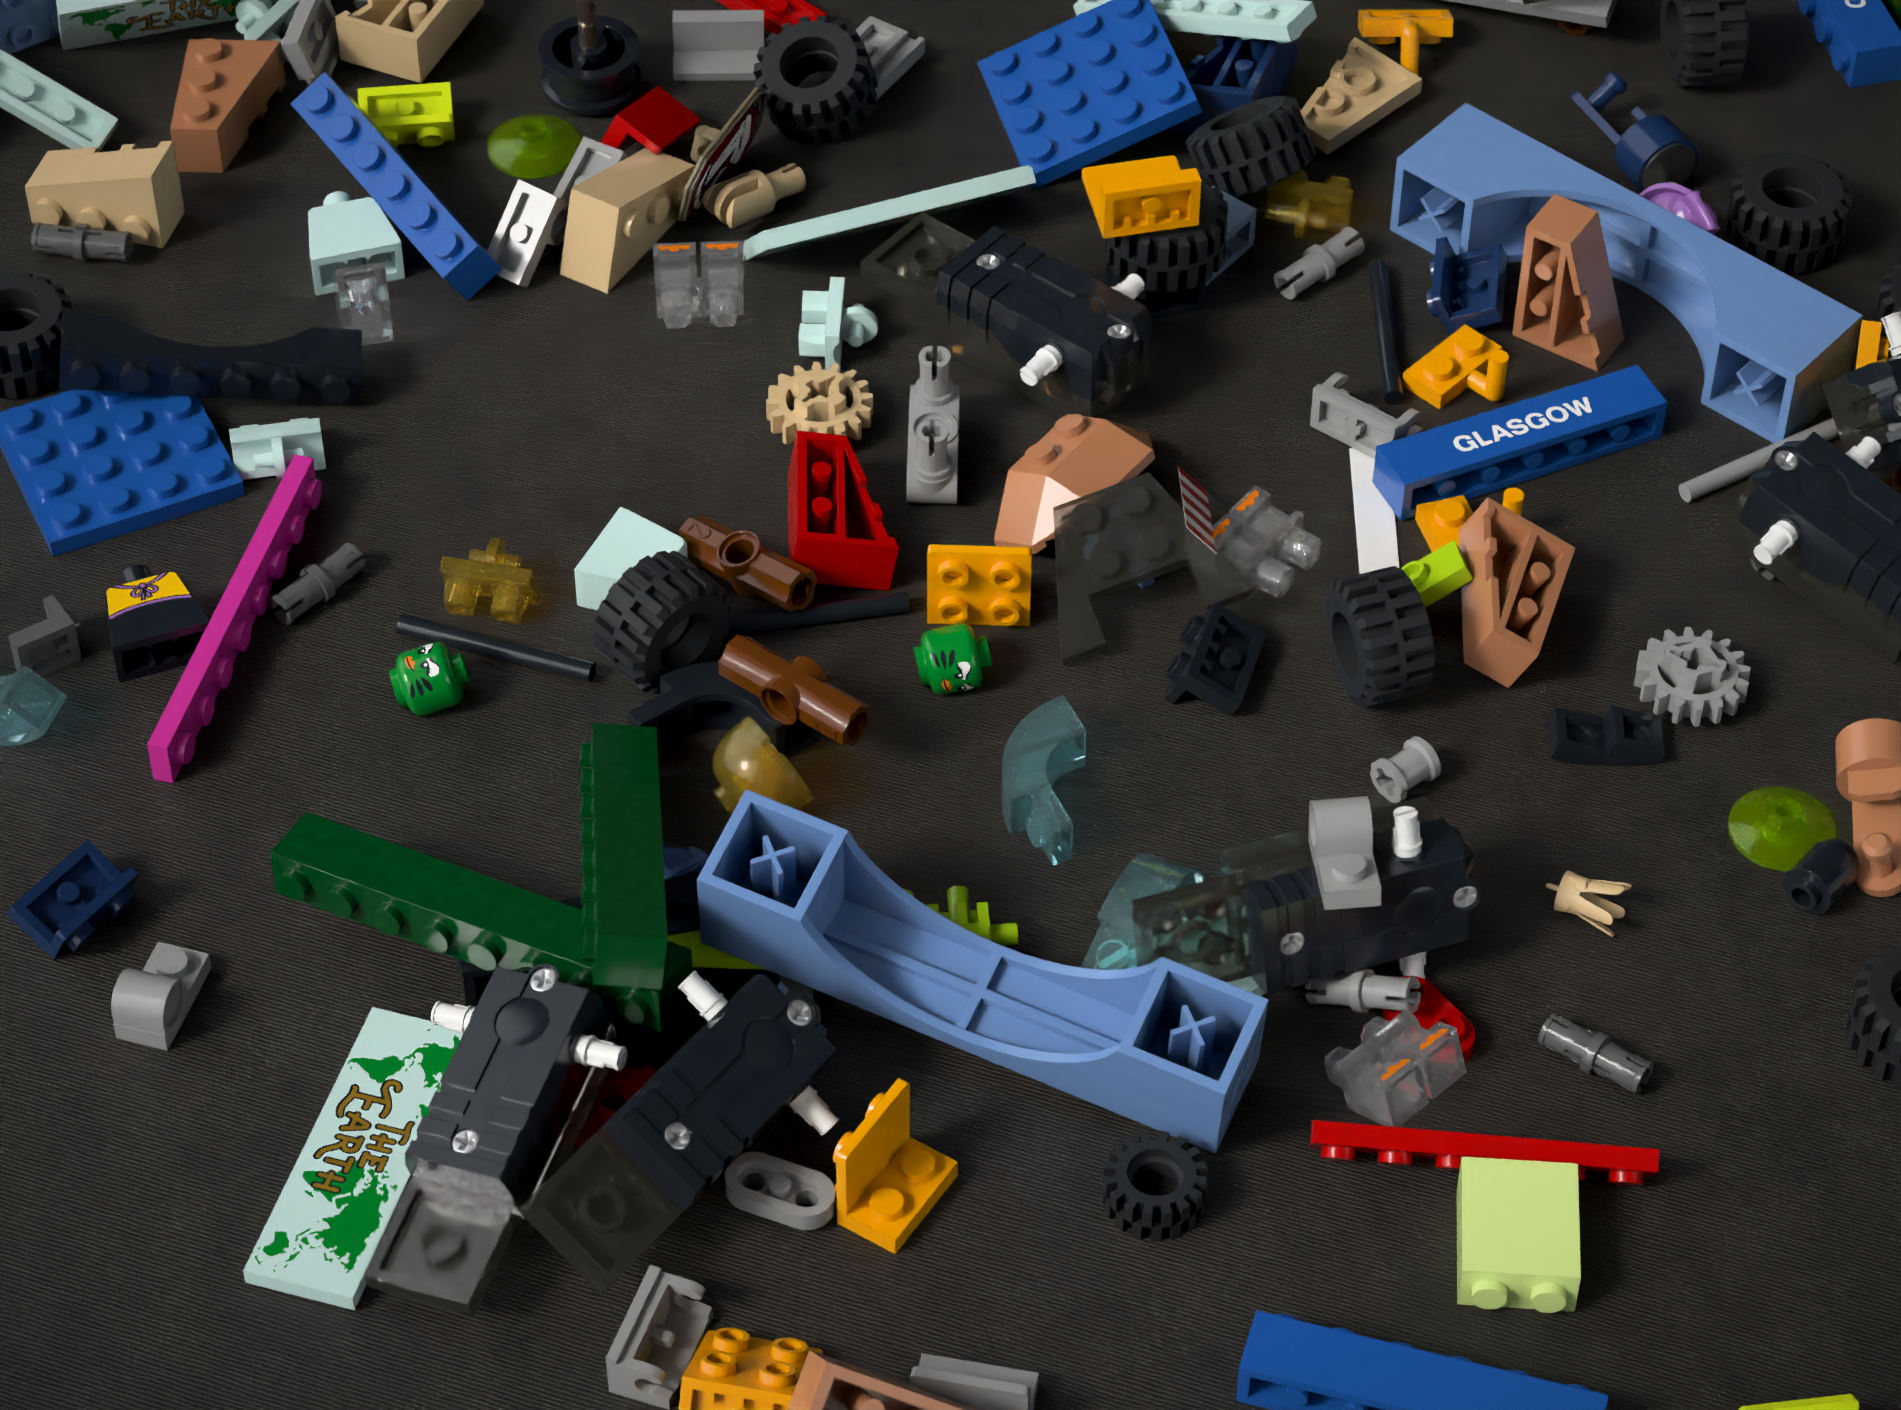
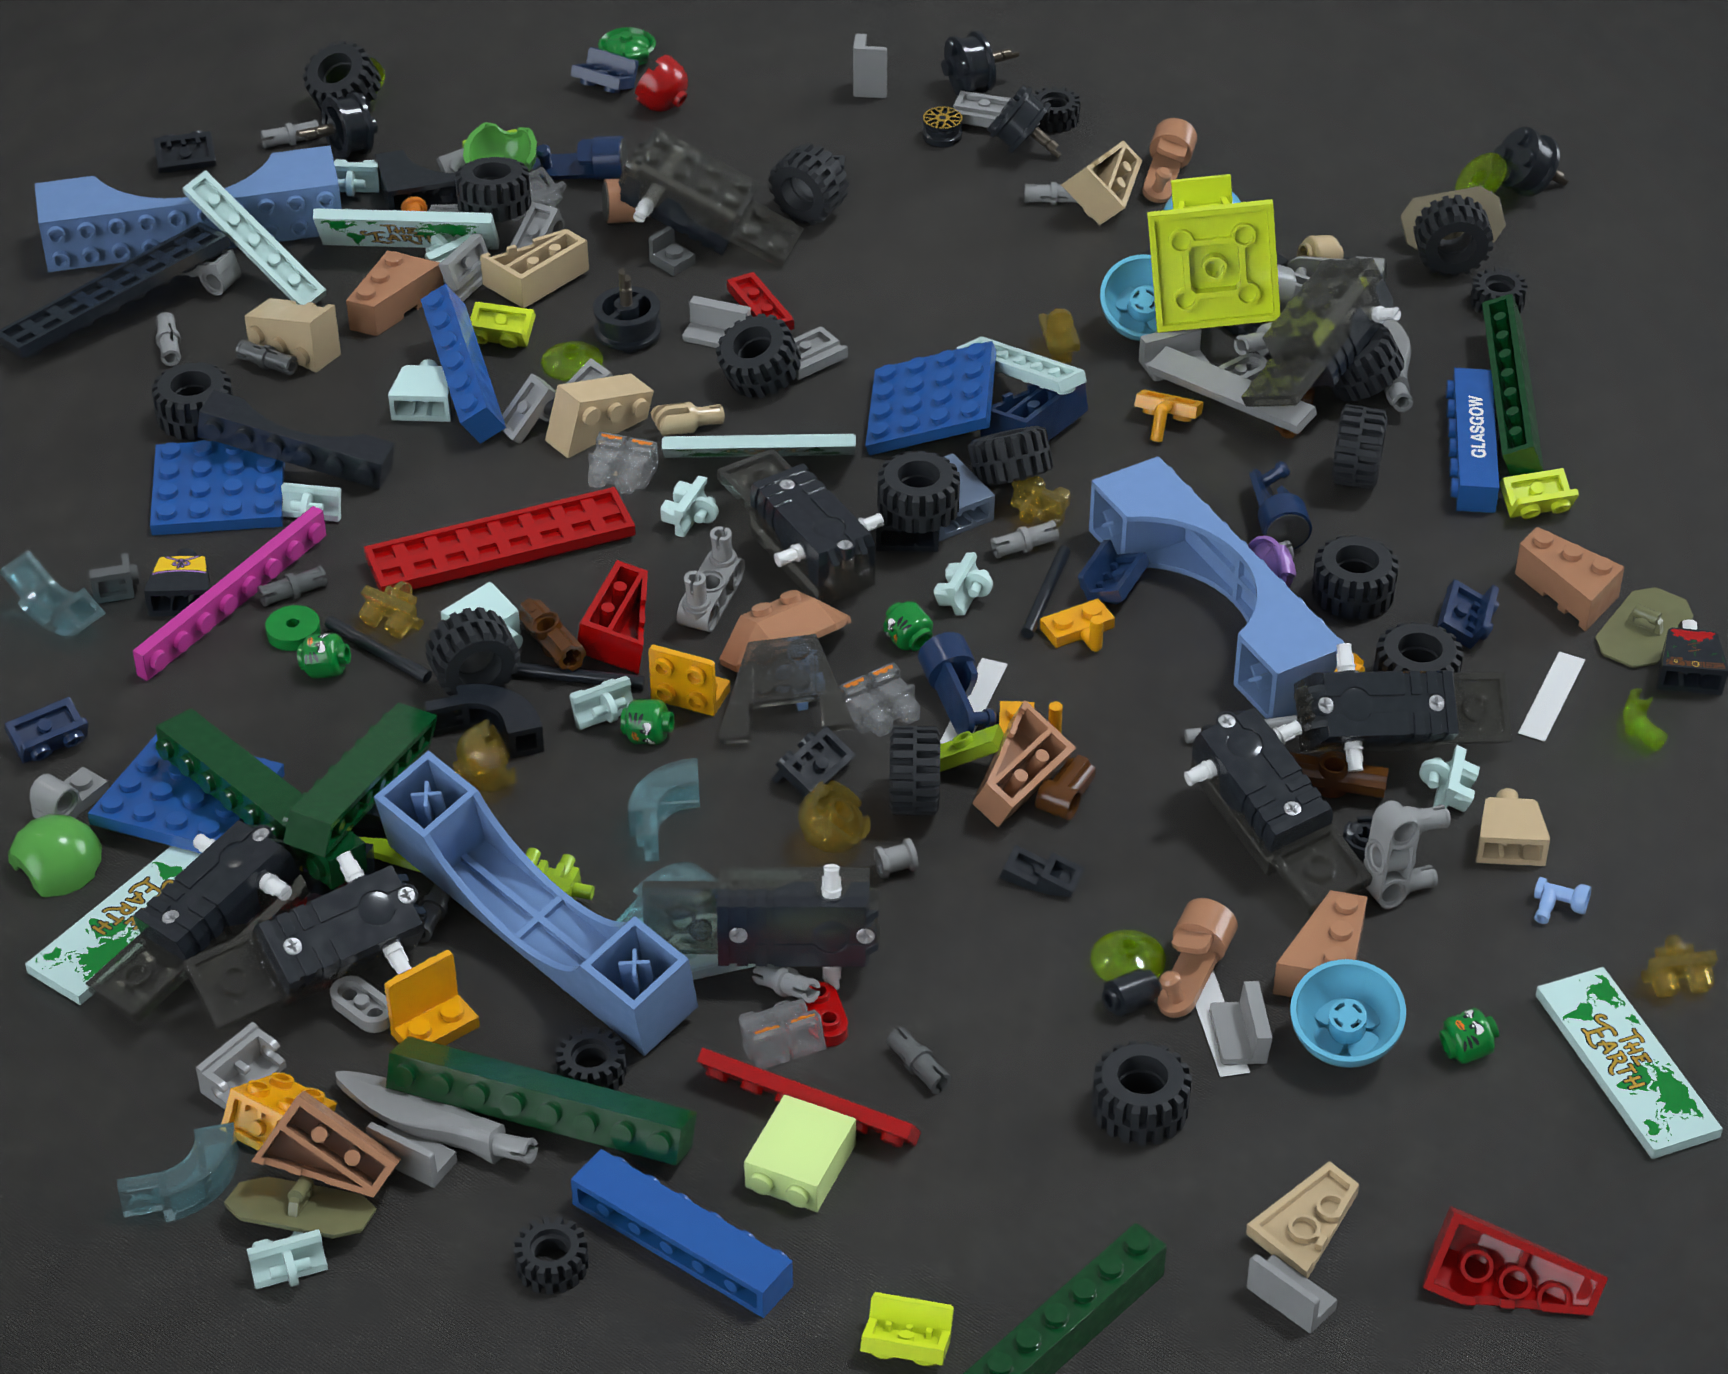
camera: 20 degrees right, 5 degrees down
(195, 1087) = (56, 854): none -> bright green cylinder
(320, 970) = (163, 804): none -> blue plate
(364, 301) = (407, 427): clear slope -> none
(370, 643) = (290, 626): none -> green piece
(585, 442) = (501, 540): none -> red plate
(652, 120) = (640, 359): red panel -> none
(723, 153) = (674, 386): shield -> none
(794, 690) = (526, 712): reddish brown piece -> none
(819, 403) = (654, 551): tan gear -> none
(876, 645) = (601, 702): none -> light aqua hips
(977, 1330) = (435, 1119): none -> light grey animal
(1123, 1261) = (541, 1100): none -> dark green brick
(1143, 196) = (897, 464): light orange bracket -> none
(1196, 509) = (844, 666): sticker -> none
(1235, 427) = (908, 625): none -> green head
(1274, 346) = (963, 584): none -> light aqua hips
(1295, 738) = (832, 818): none -> clear yellow cylinder
(1340, 483) = (953, 675): none -> dark blue piece
(1343, 852) = (786, 883): light grey plate -> none
(1354, 421) = (994, 642): light grey hinge -> none
(1357, 96) = (1110, 443): tan wing -> none
(1520, 441) = (1091, 677): blue brick -> none
(1567, 286) = (1167, 585): nougat wedge -> none
(1577, 611) = (1064, 792): none -> reddish brown piece
(1577, 898) = (965, 963): tan piece -> none
(1692, 676) = (1117, 848): light grey gear -> none

